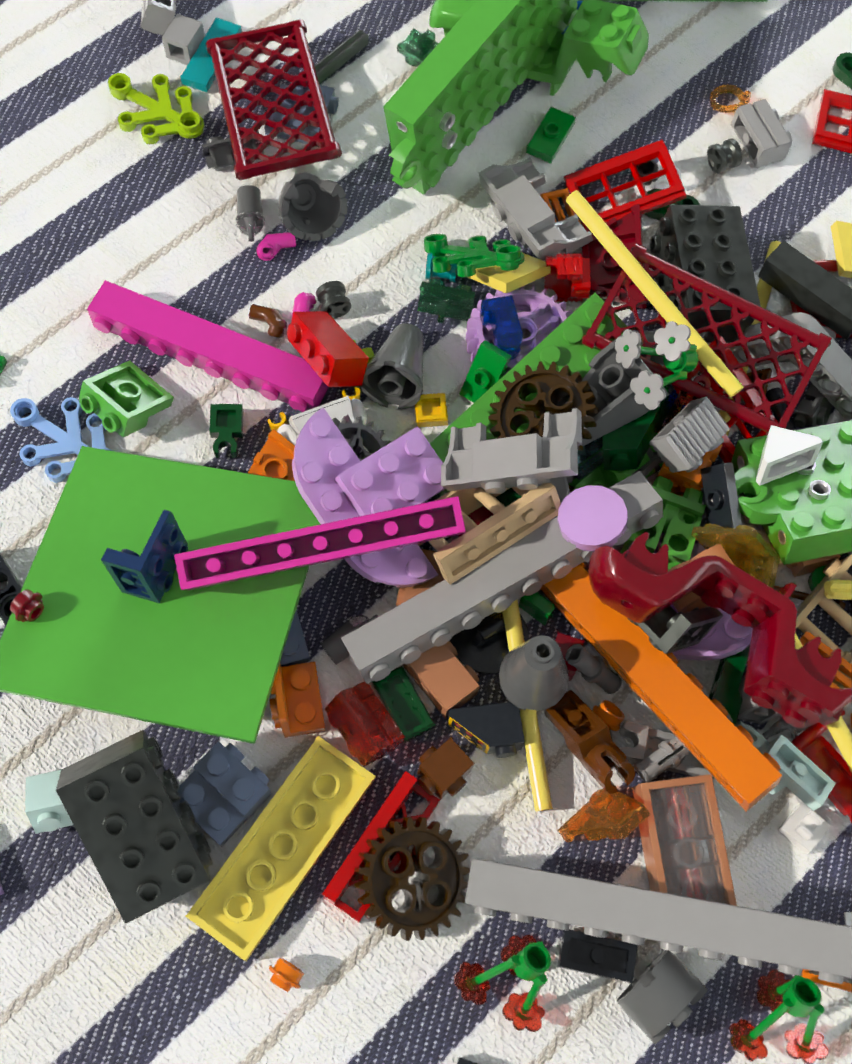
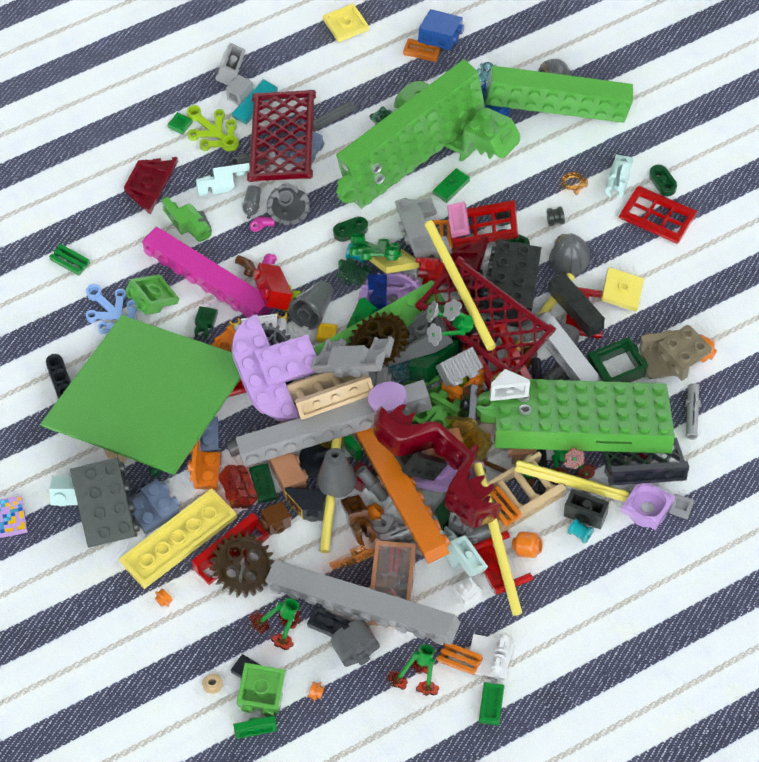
camera: 20 degrees right, 10 degrees down
(27, 606) = (73, 388): dark red plate -> none
(74, 207) = (149, 181): none -> dark red wing
(101, 106) = (180, 123): none -> green tile
(153, 259) = (188, 219): none -> bright green plate
(153, 571) = (143, 380): dark blue bracket -> none
(193, 184) = (221, 180): none -> light aqua plate
(319, 543) = (235, 382): dark pink brick -> none
(333, 298) = (286, 260): pearl dark grey wheel -> none
(418, 227) = (350, 227): none -> dark green plate
(581, 177) = (458, 219): none -> bright pink tile
(761, 133) = (584, 206): light grey brick -> none
(768, 211) = (569, 255): none -> dark grey hair
(795, 78) = (619, 175): none -> light aqua plate

